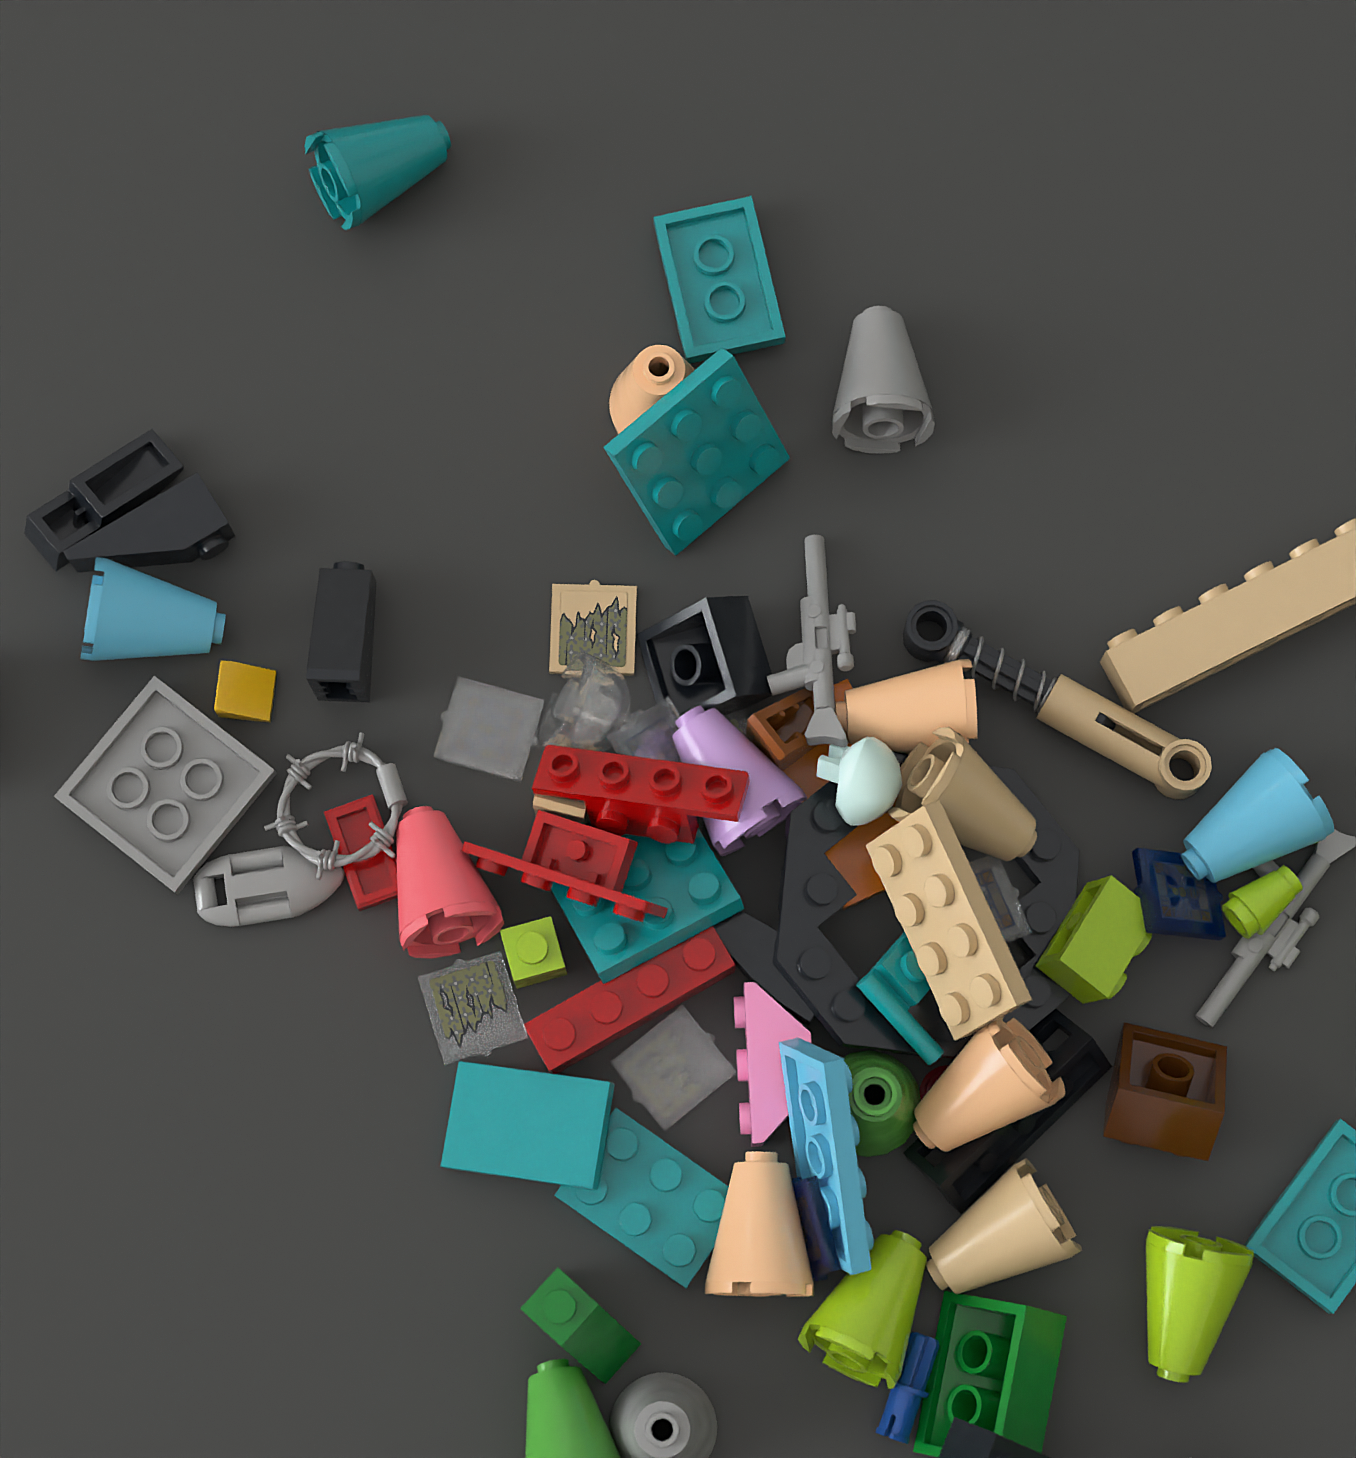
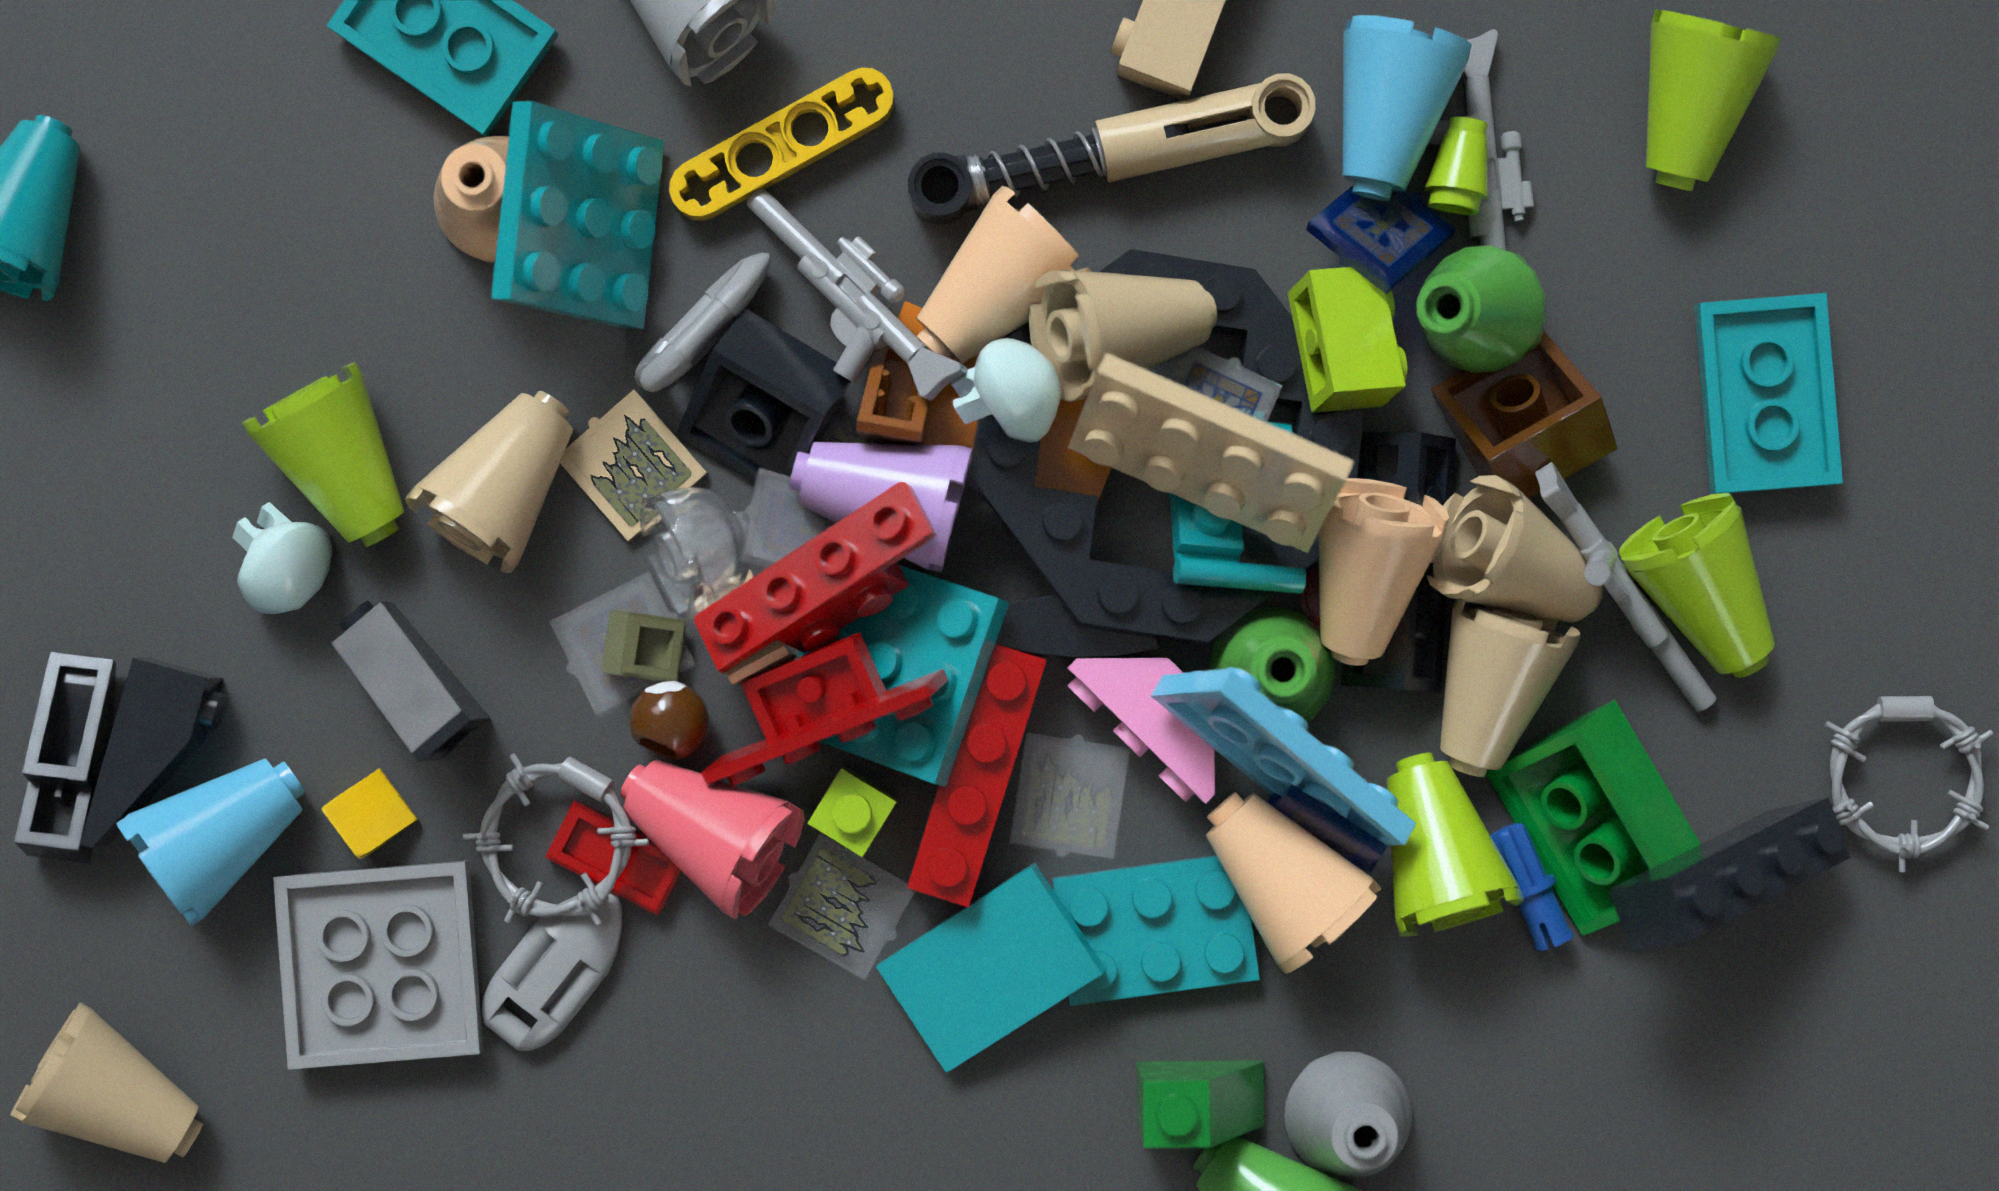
camera: 45 degrees left, 10 degrees up
(335, 497) = (282, 561): none -> light aqua piece
(425, 462) = (334, 454): none -> lime cone
(474, 797) = (669, 720): none -> reddish brown piece
(500, 740) = (643, 646): none -> olive slope
(505, 563) = (497, 480): none -> tan cone
(698, 585) = (702, 324): none -> light grey piece
(860, 513) = (777, 135): none -> yellow beam
(1081, 1166) = (1510, 556): none -> tan cone
(1135, 1223) = (1606, 569): none -> light grey piece
(1196, 996) = (1498, 313): none -> bright green cone

